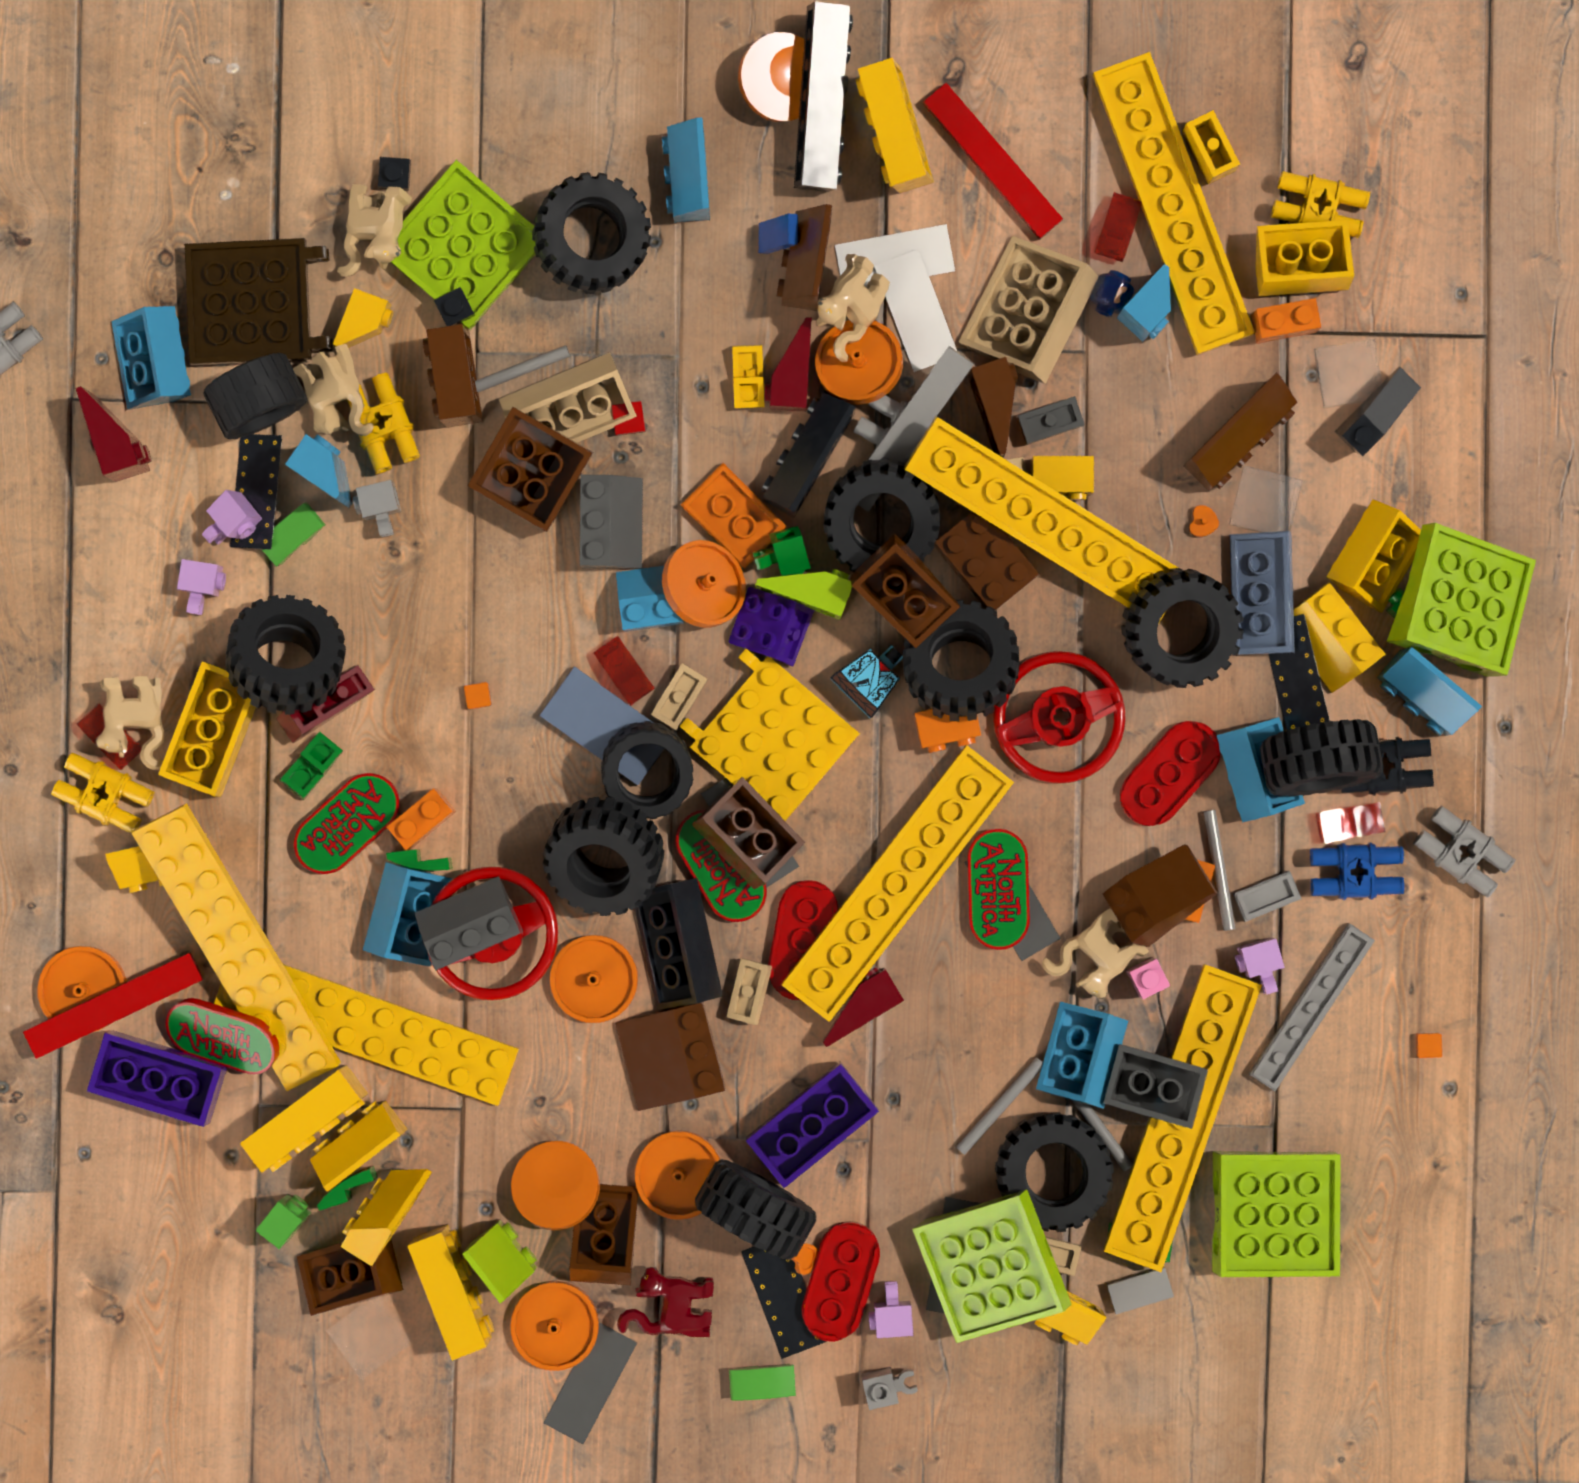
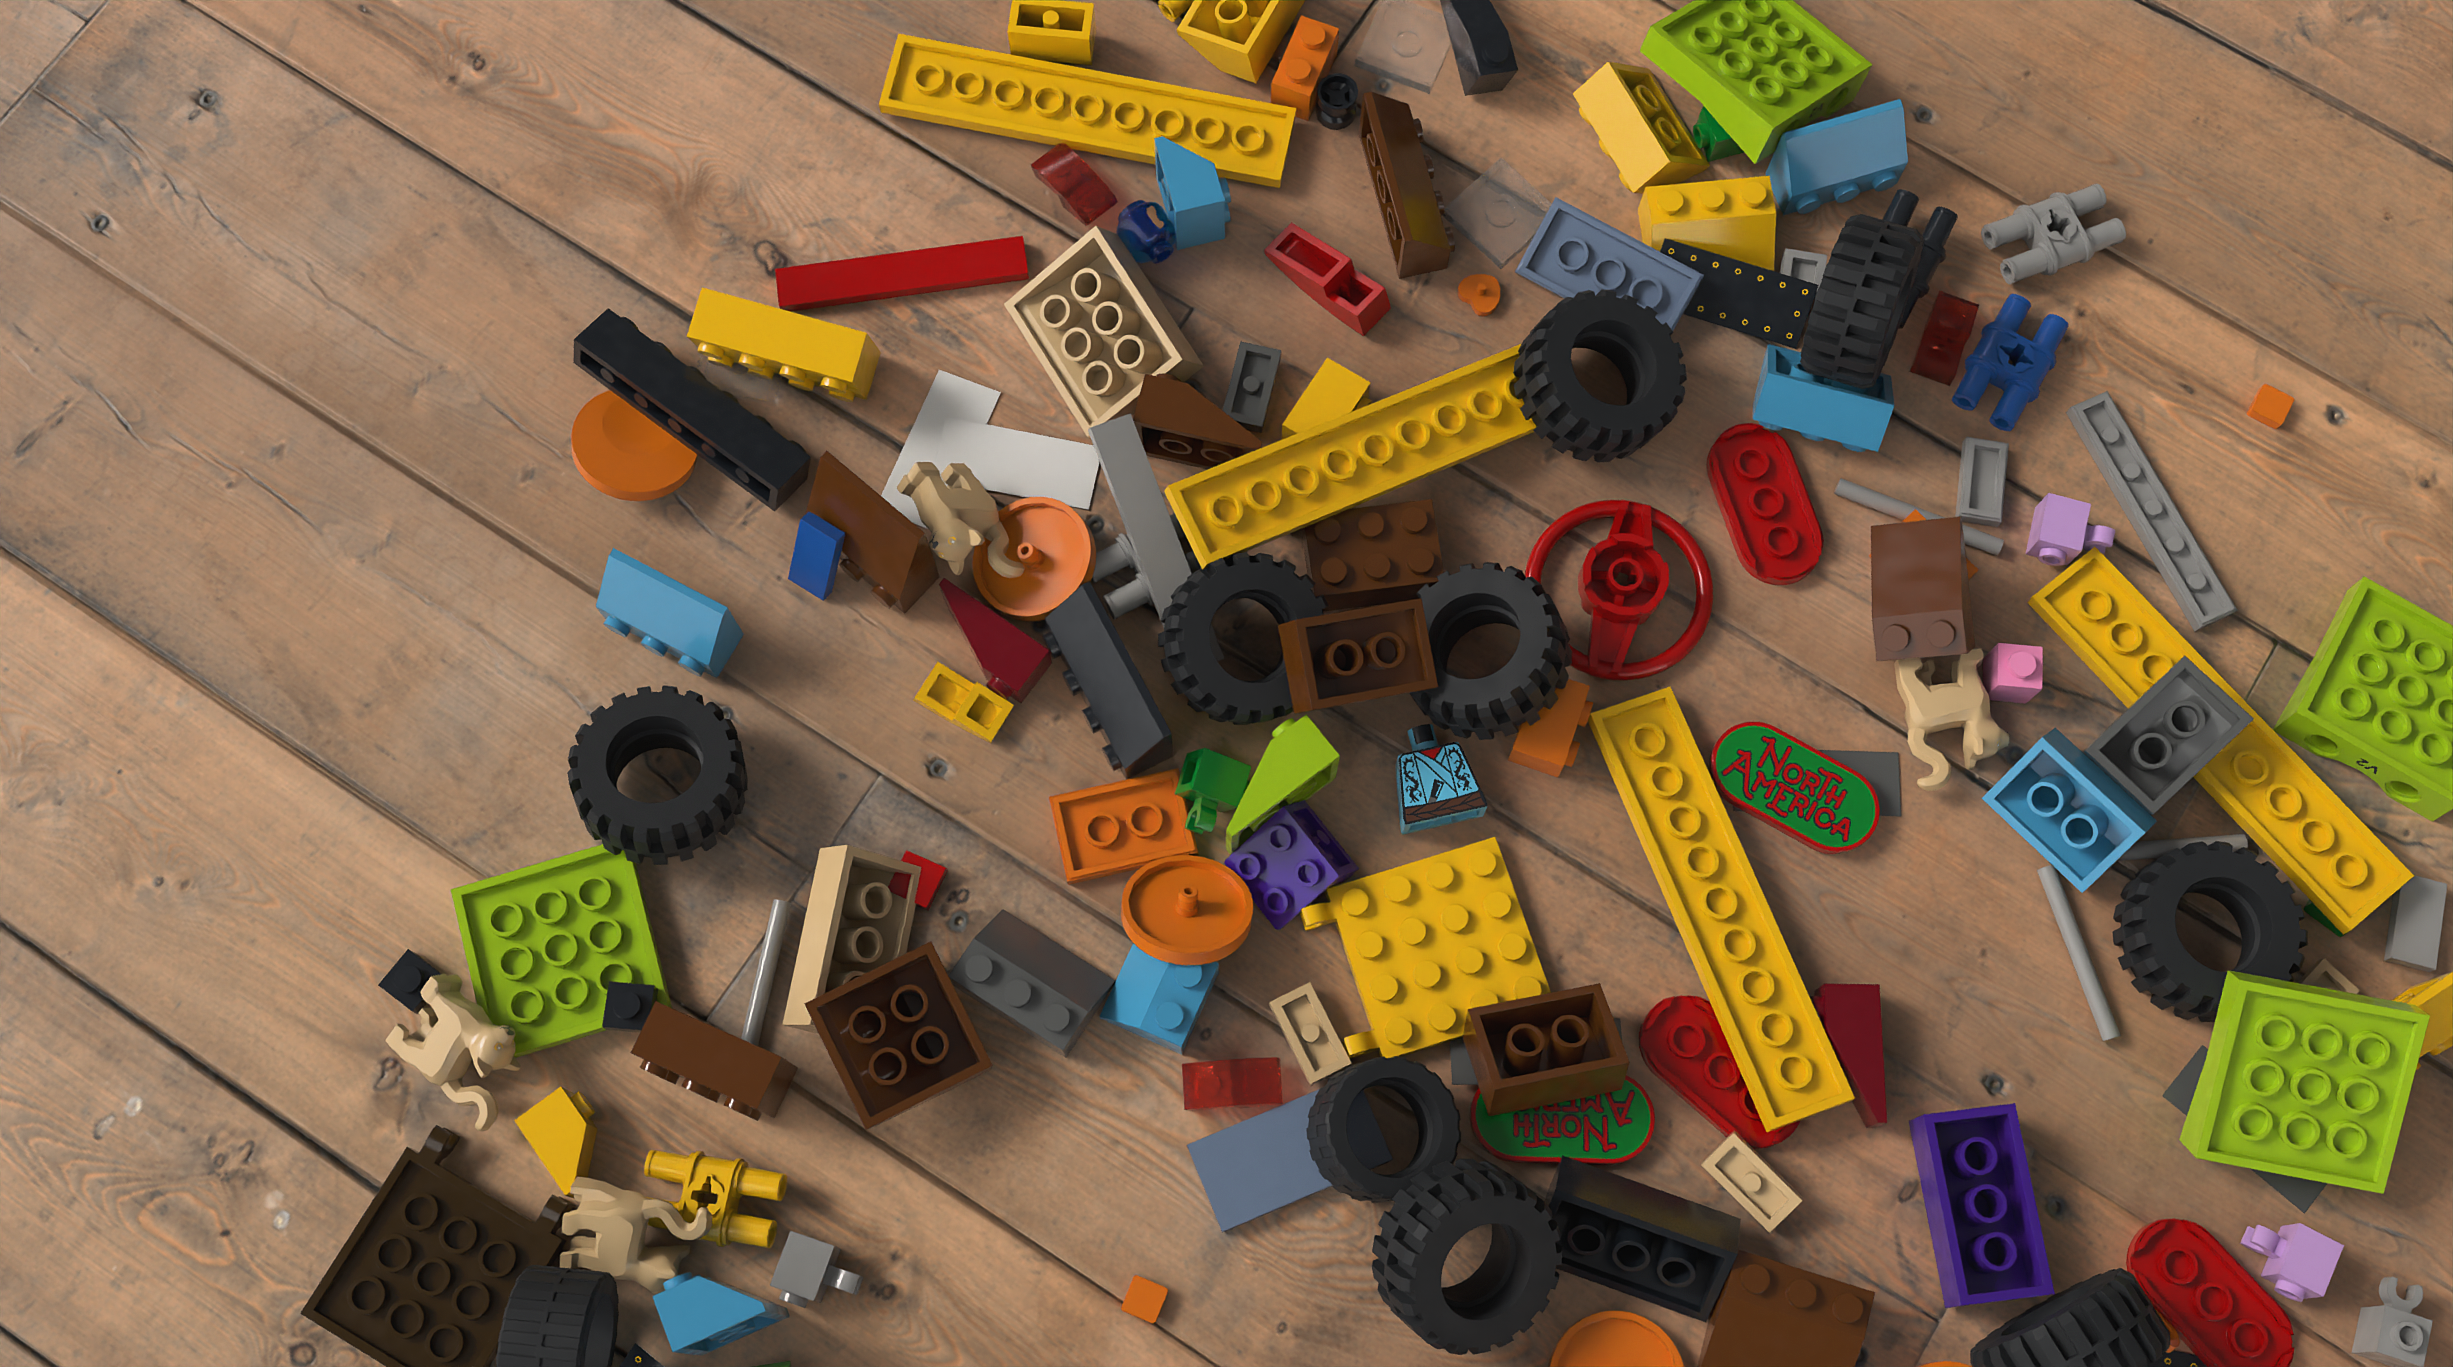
camera: 55 degrees left, 15 degrees down
(1152, 423) = (1329, 278): none -> red slope
(1280, 351) = (1333, 92): none -> black wheel
(1341, 708) = (1804, 265): none -> light grey plate

